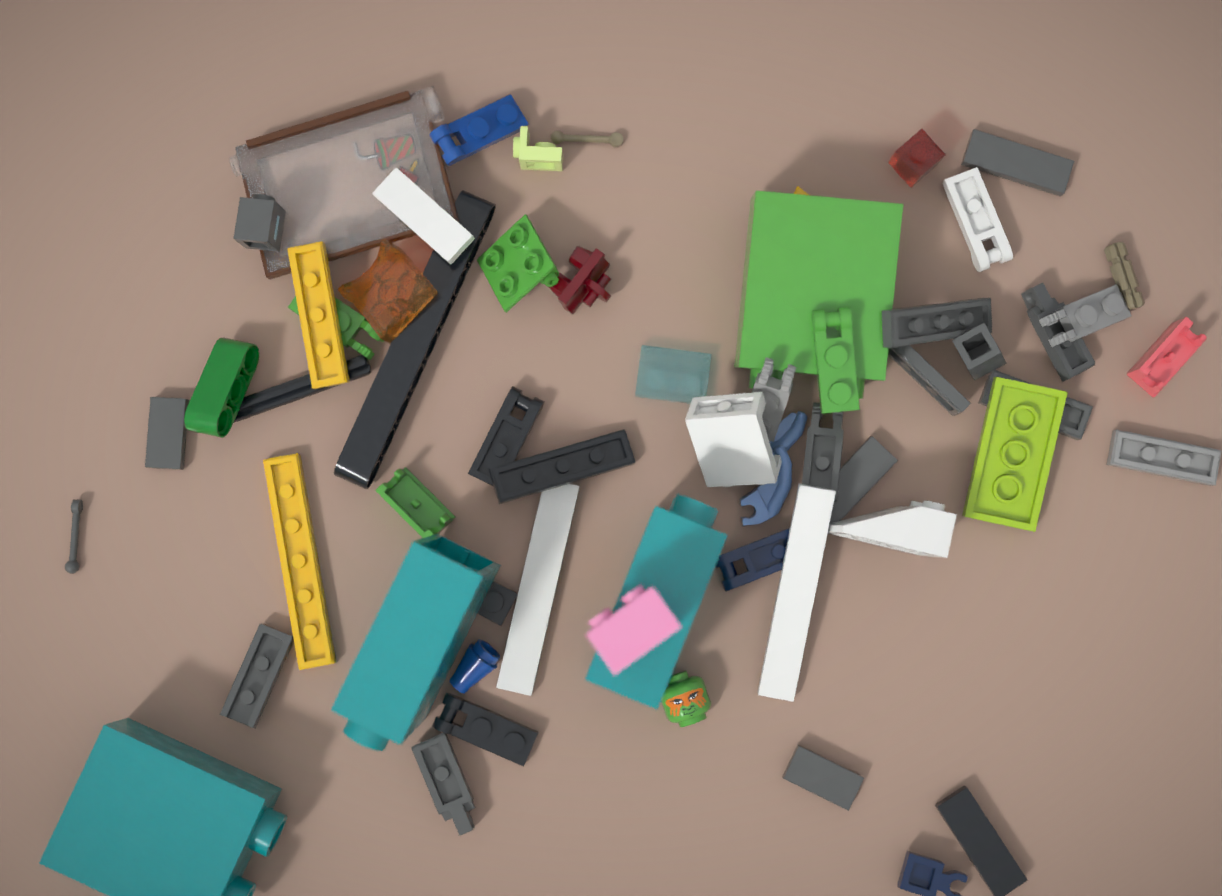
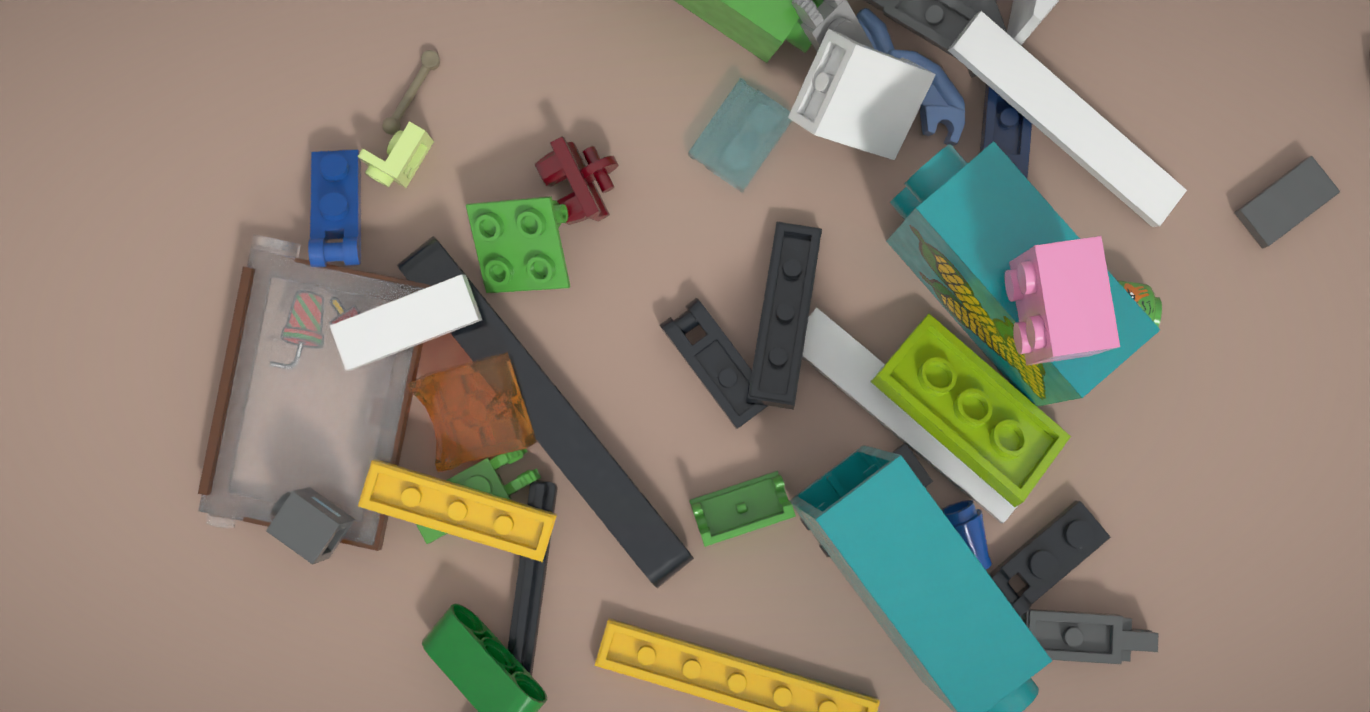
camera: 70 degrees left, 0 degrees up
(554, 641) = (971, 410): none -> lime plate

